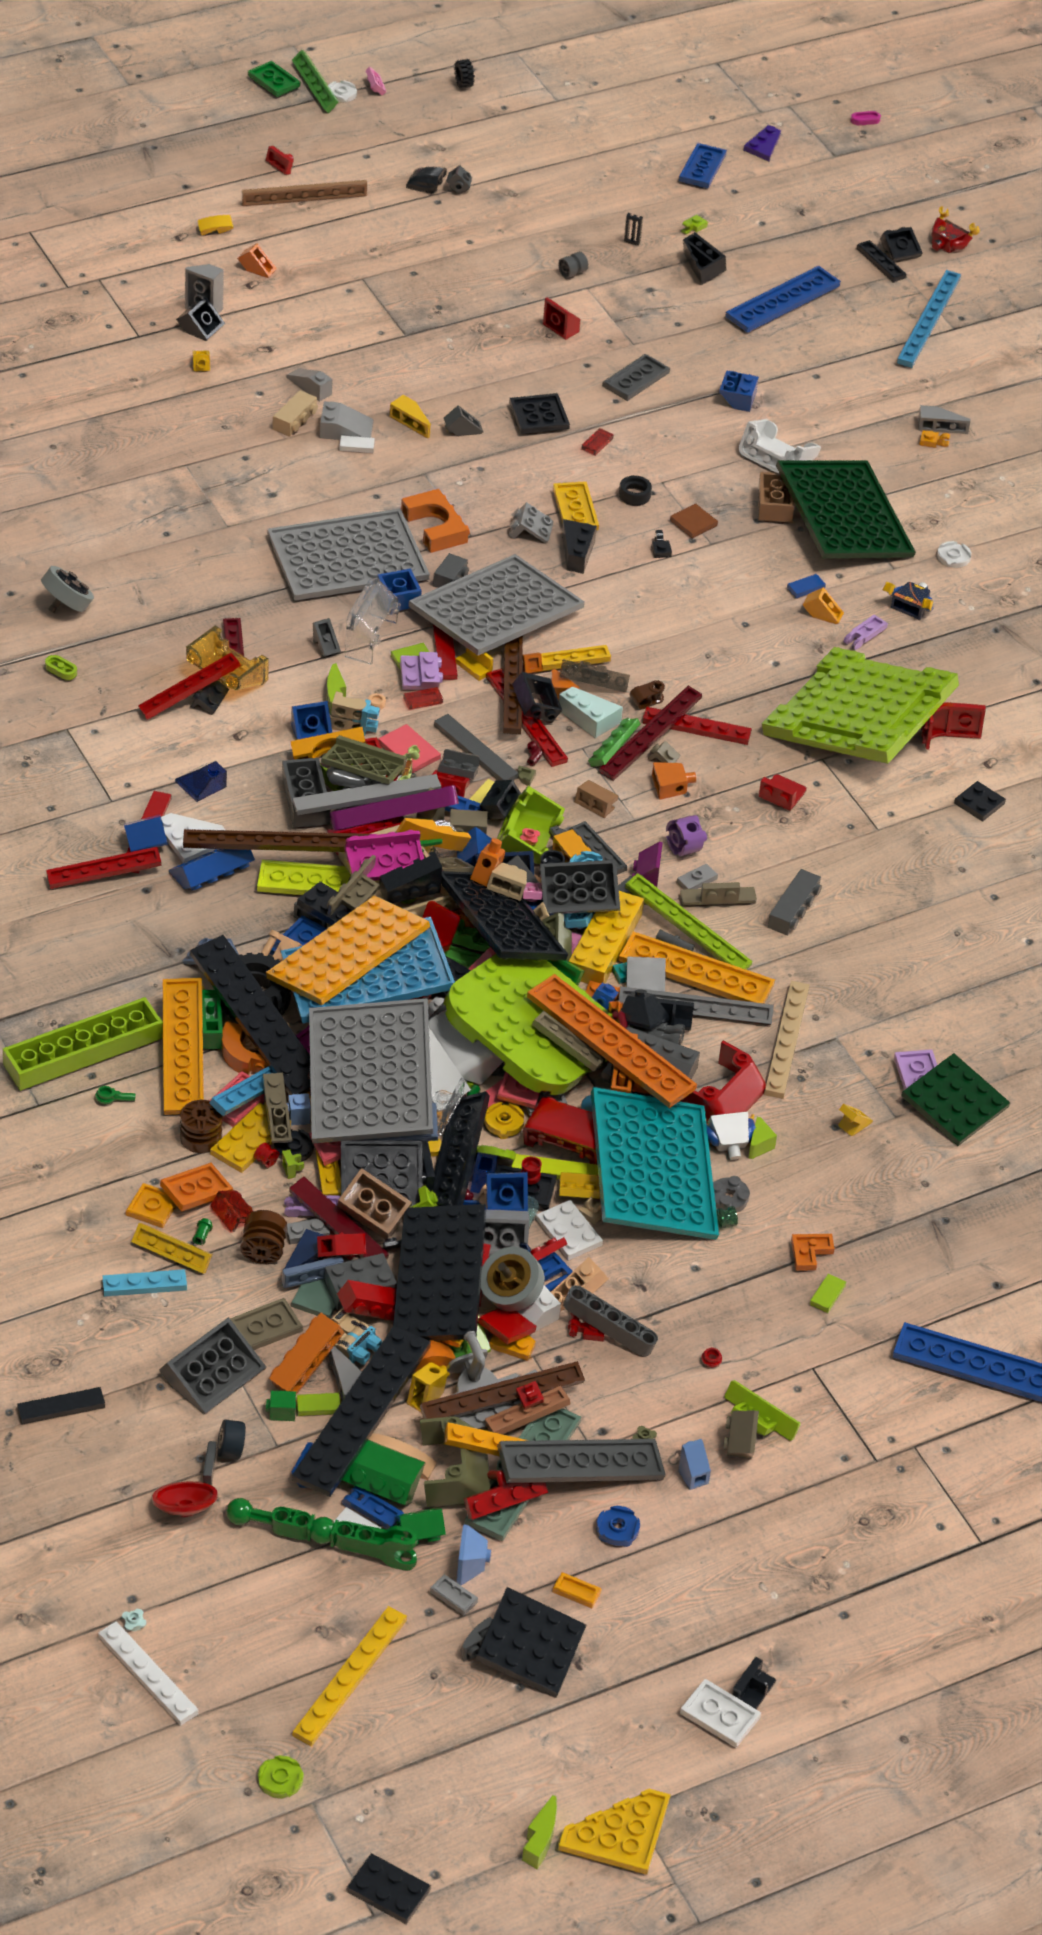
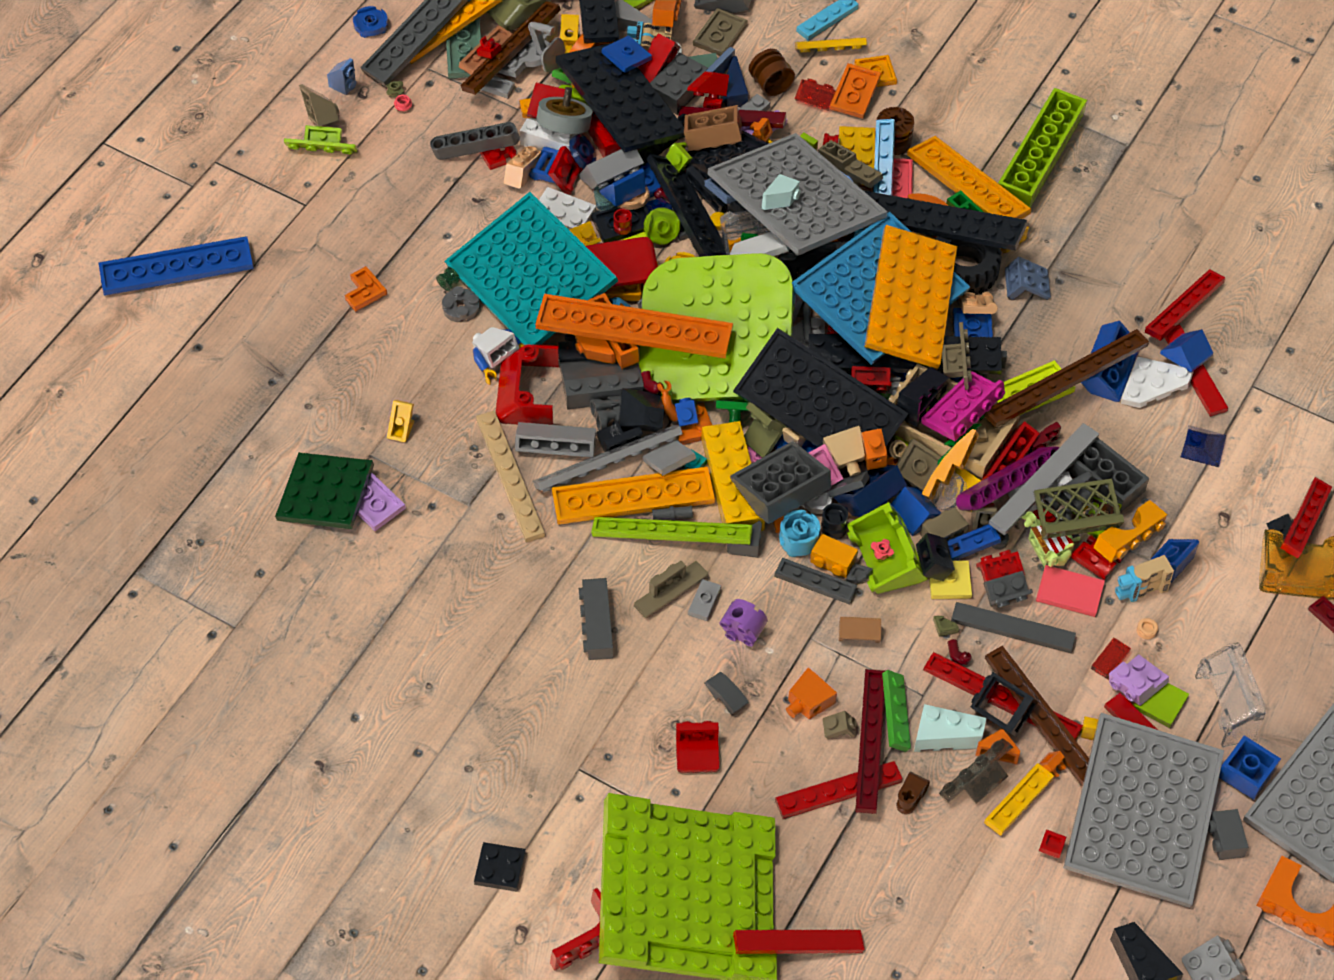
camera: 150 degrees right, 10 degrees up
(107, 1095) = (987, 128): green plate -> none
(204, 1227) = (823, 70): green pin -> none
(325, 636) = (1260, 662): dark grey slope -> none
(328, 1185) = (762, 129): none -> orange tile
(334, 683) = (1191, 610): lime slope -> none
(396, 1055) = (781, 193): none -> light aqua slope
(401, 1304) = (626, 54): none -> blue plate
(568, 1041) = (689, 307): dark tan plate -> none
(578, 622) = (1052, 843): none -> red tile
(649, 863) = (749, 568): magenta slope -> none
(649, 1412) = (402, 103): none -> coral plate
(711, 1357) = (385, 167): red plate -> none
(720, 1027) = (555, 439): none -> light grey brick
(732, 812) = (727, 691): none -> dark grey slope
(762, 1140) = (465, 362): lime slope -> none
(804, 653) = (797, 941): none -> red tile
(828, 1293) = (329, 264): lime tile -> none

